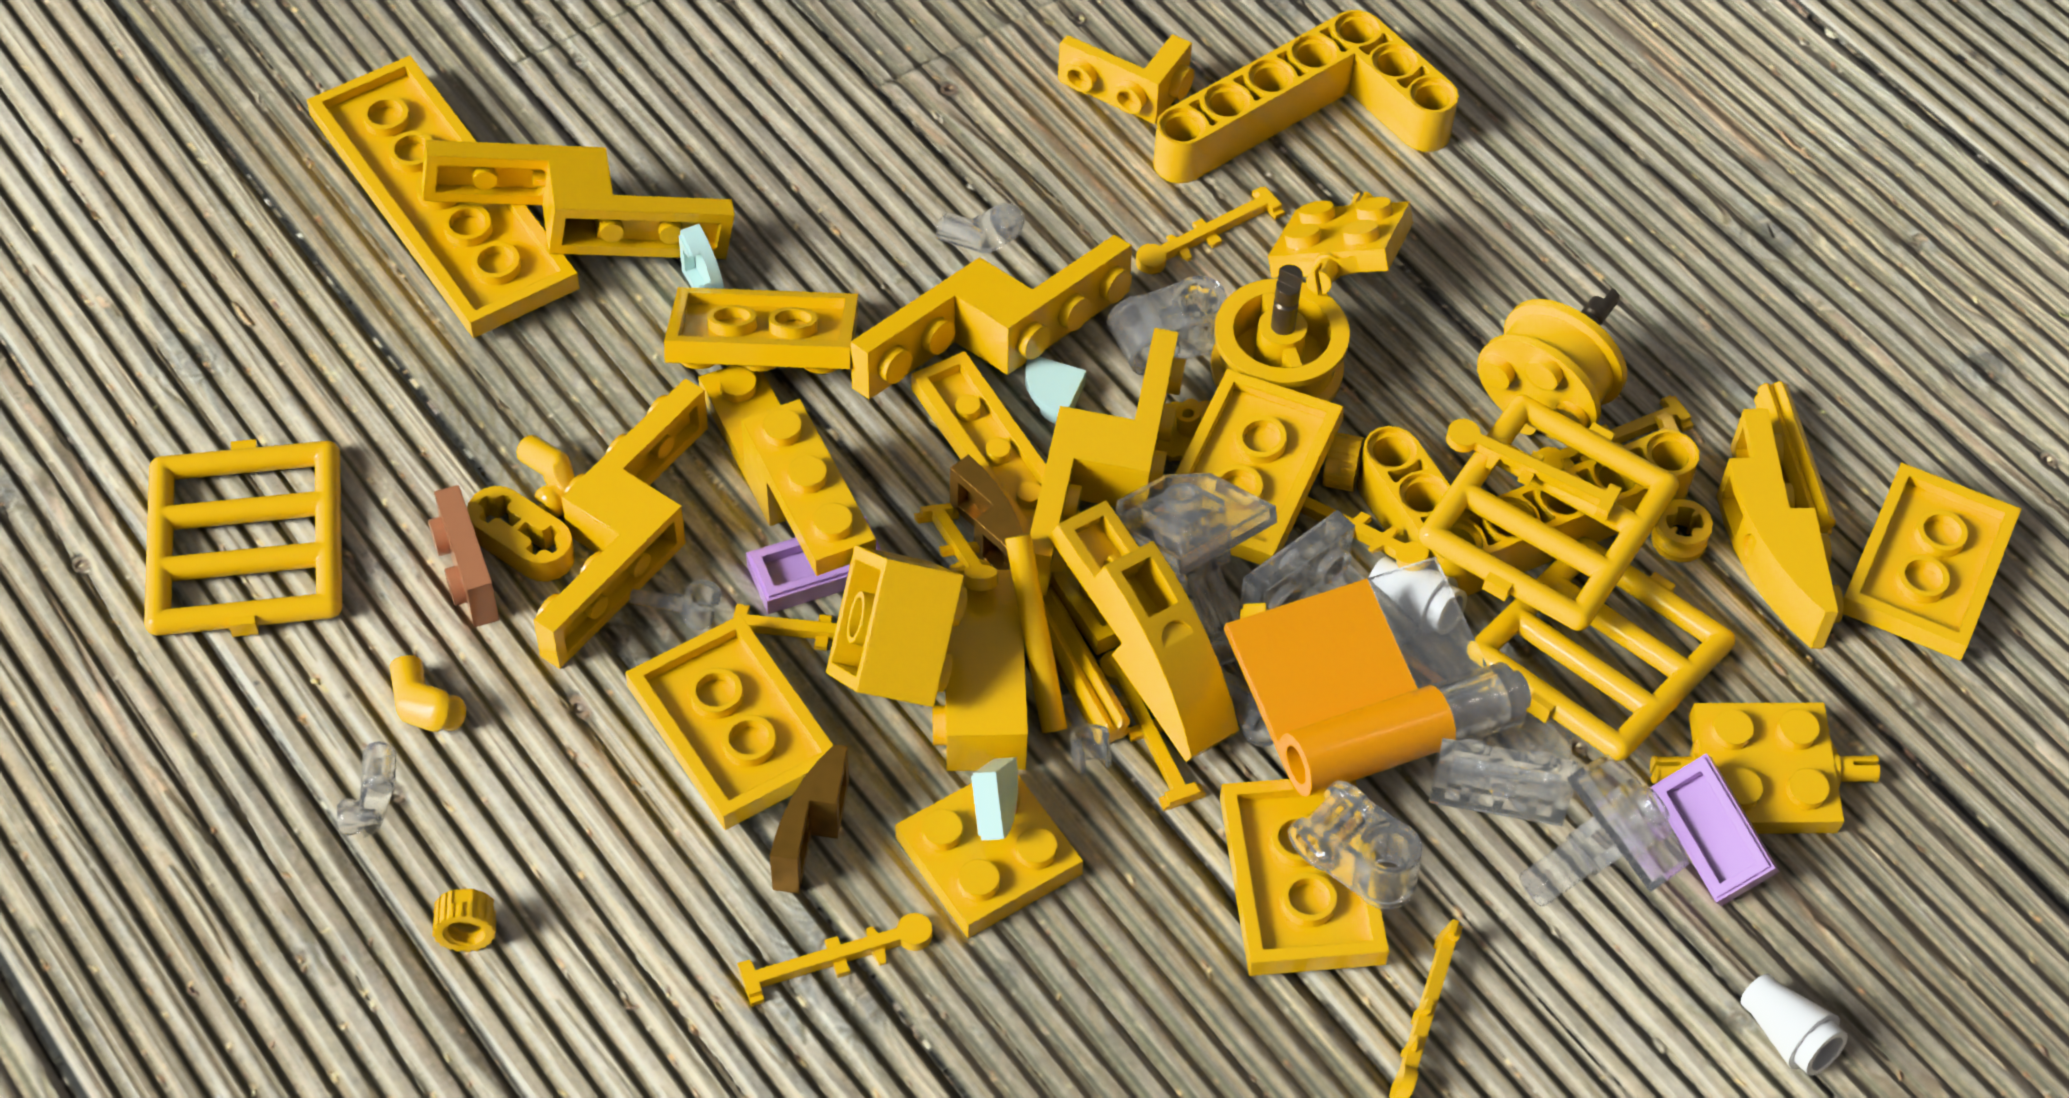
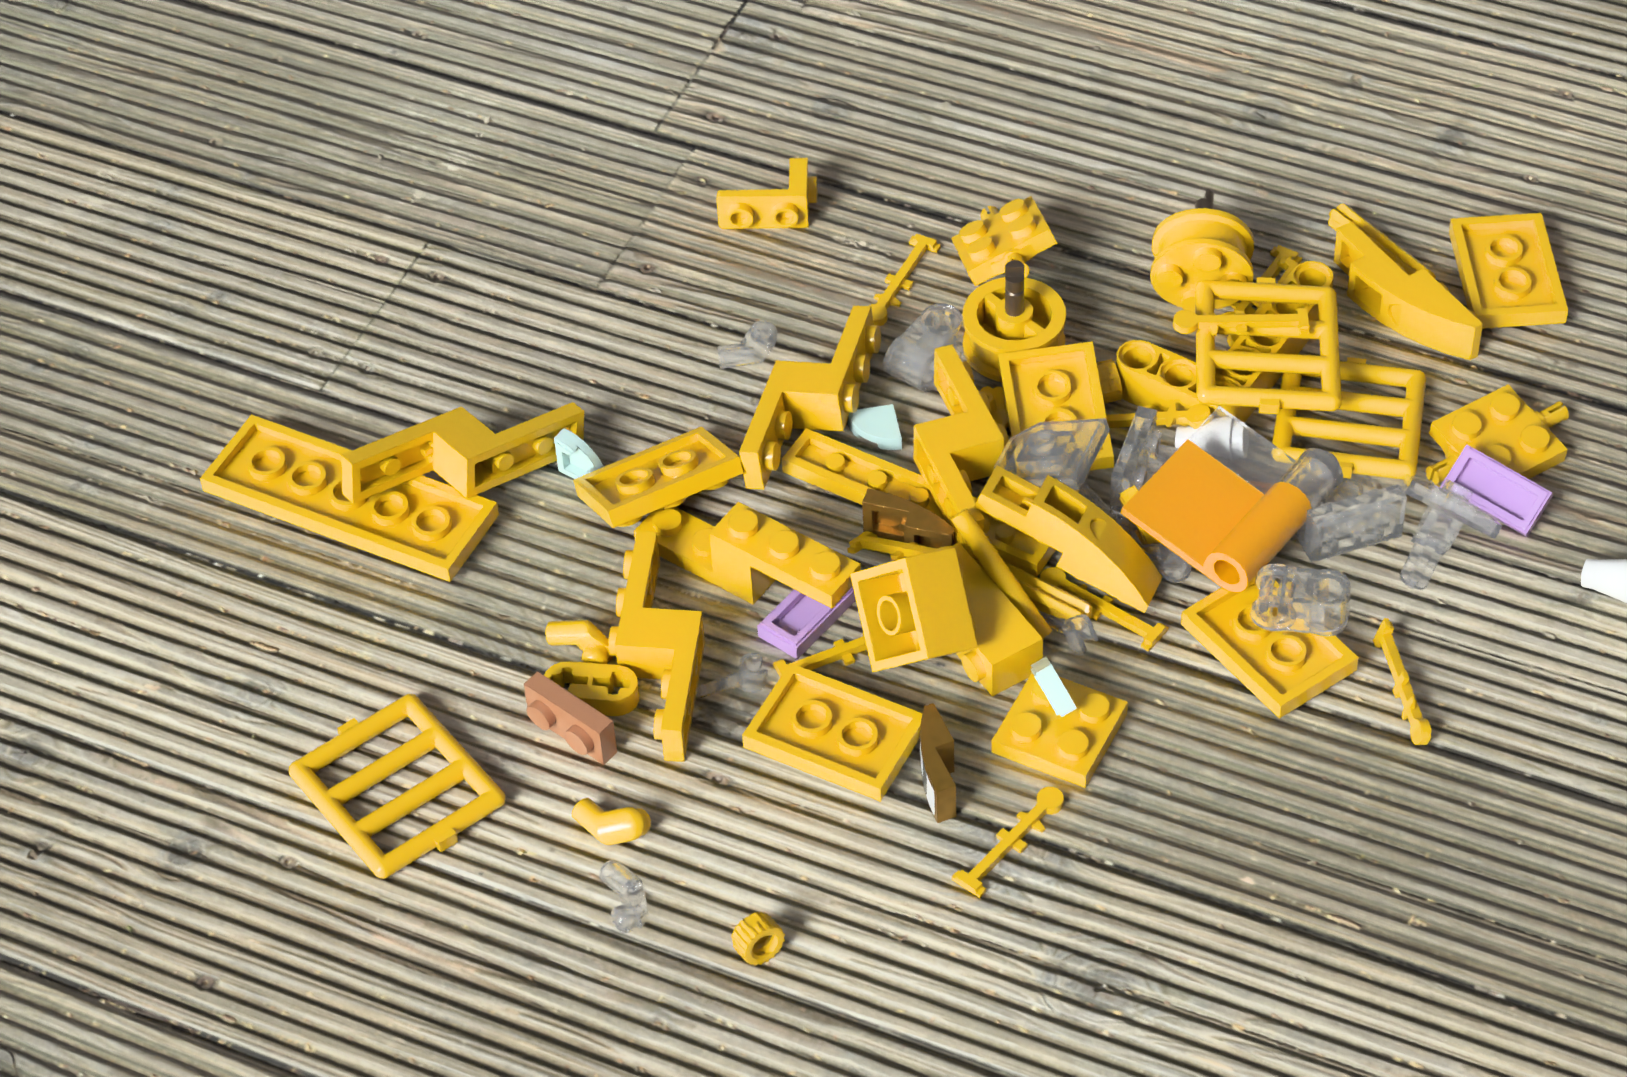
camera: 25 degrees left, 5 degrees down
(1336, 58) = (909, 122): yellow beam -> none
(1679, 547) = (1350, 315): yellow bush -> none

